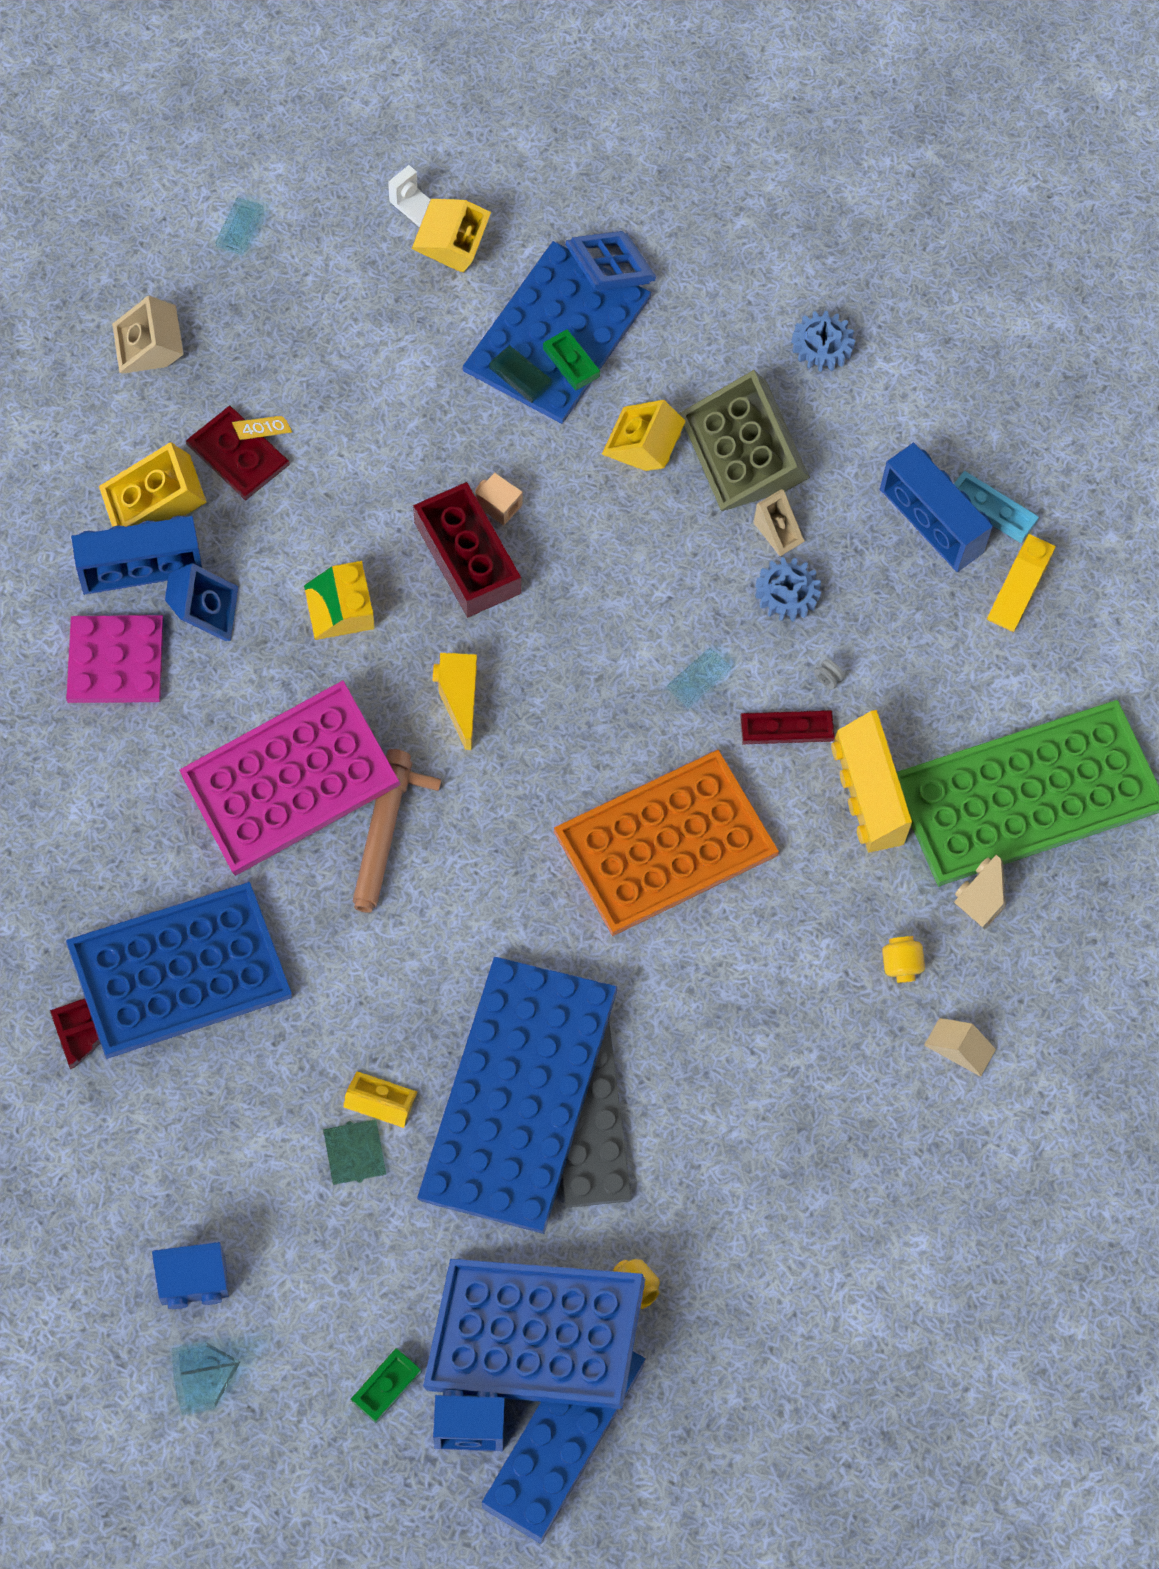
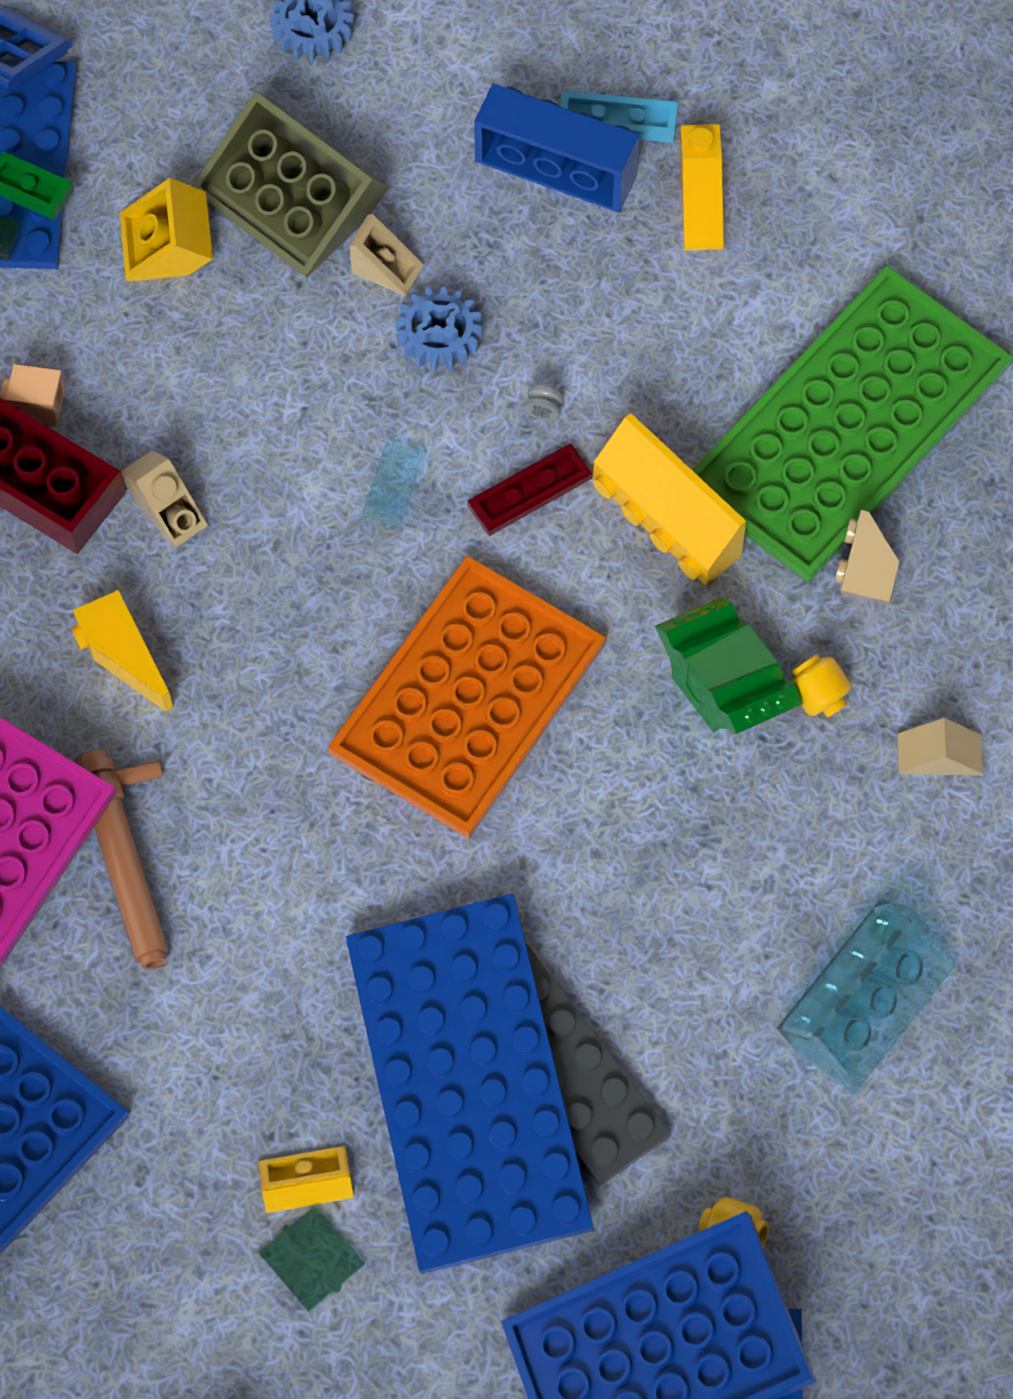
camera: 25 degrees left, 0 degrees up
(542, 609) = (163, 497): none -> tan slope
(814, 1179) = (867, 994): none -> clear light blue slope
(845, 912) = (725, 668): none -> green slope

